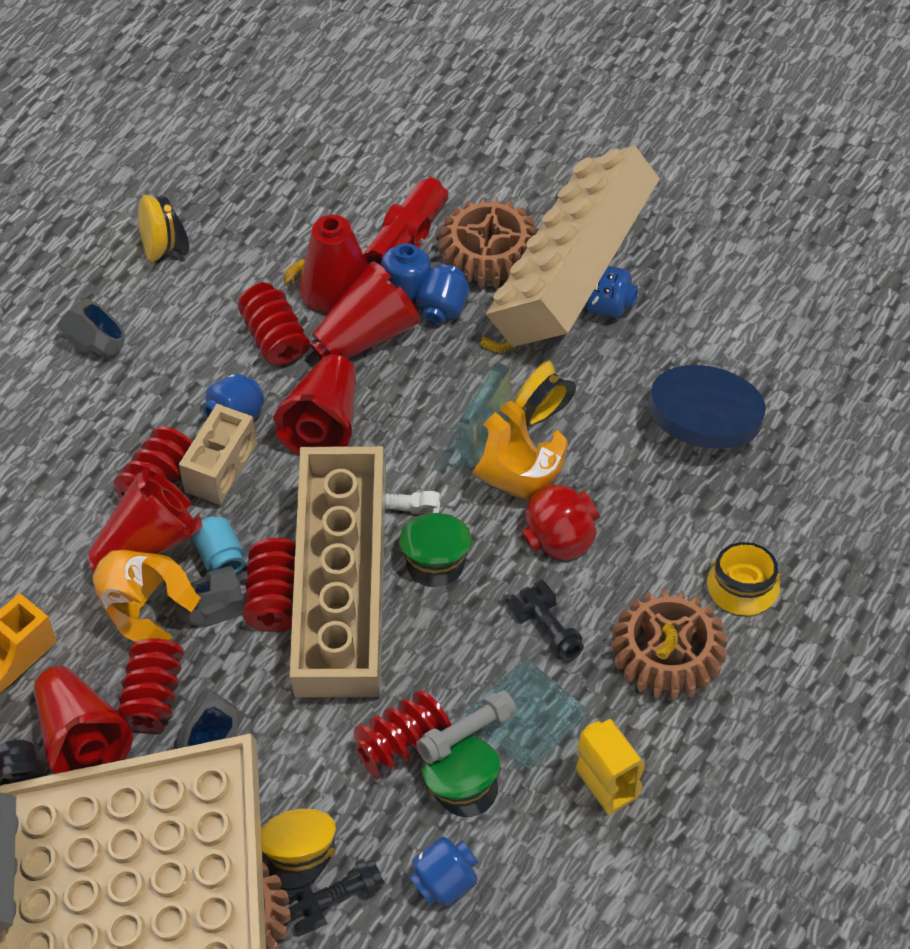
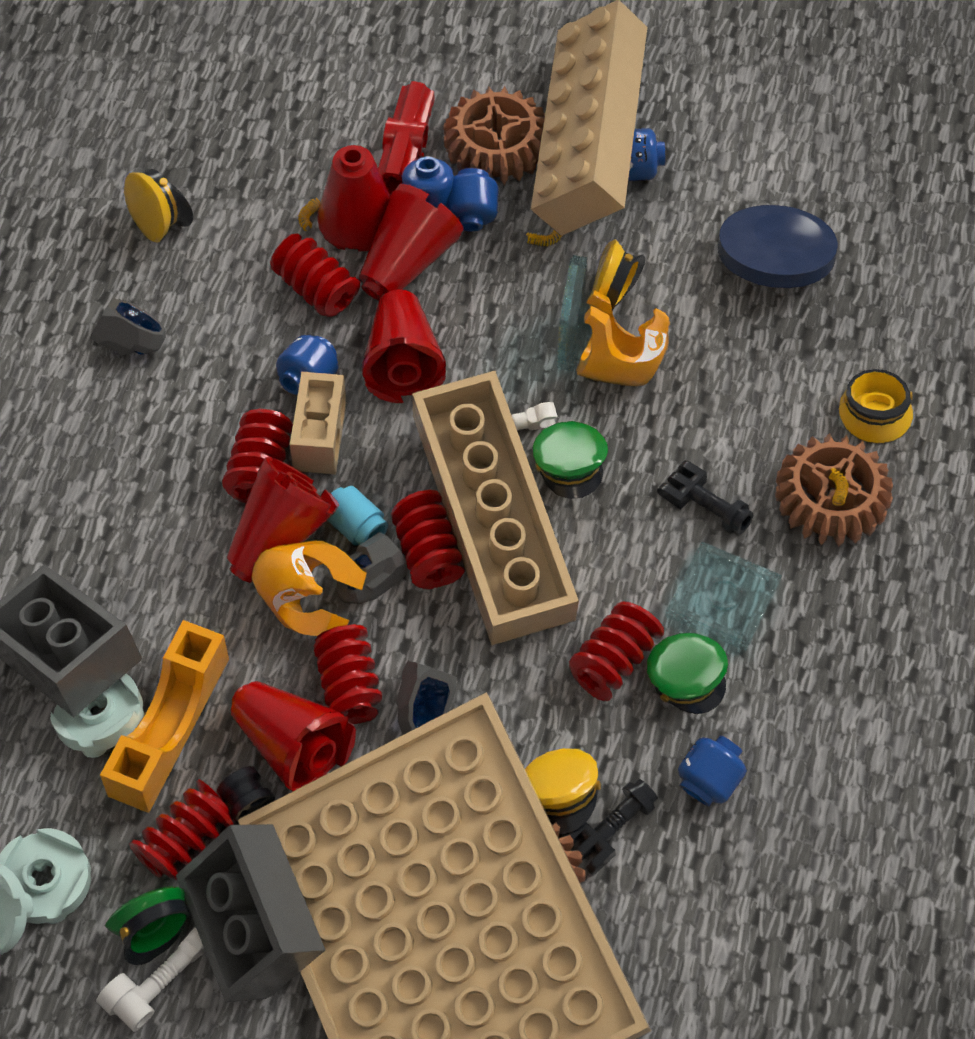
camera: 20 degrees left, 5 degrees up
(436, 744) = (659, 650): light grey bar -> none
(560, 522) = (683, 398): red plant -> none
(609, 765) = (830, 622): yellow brick -> none

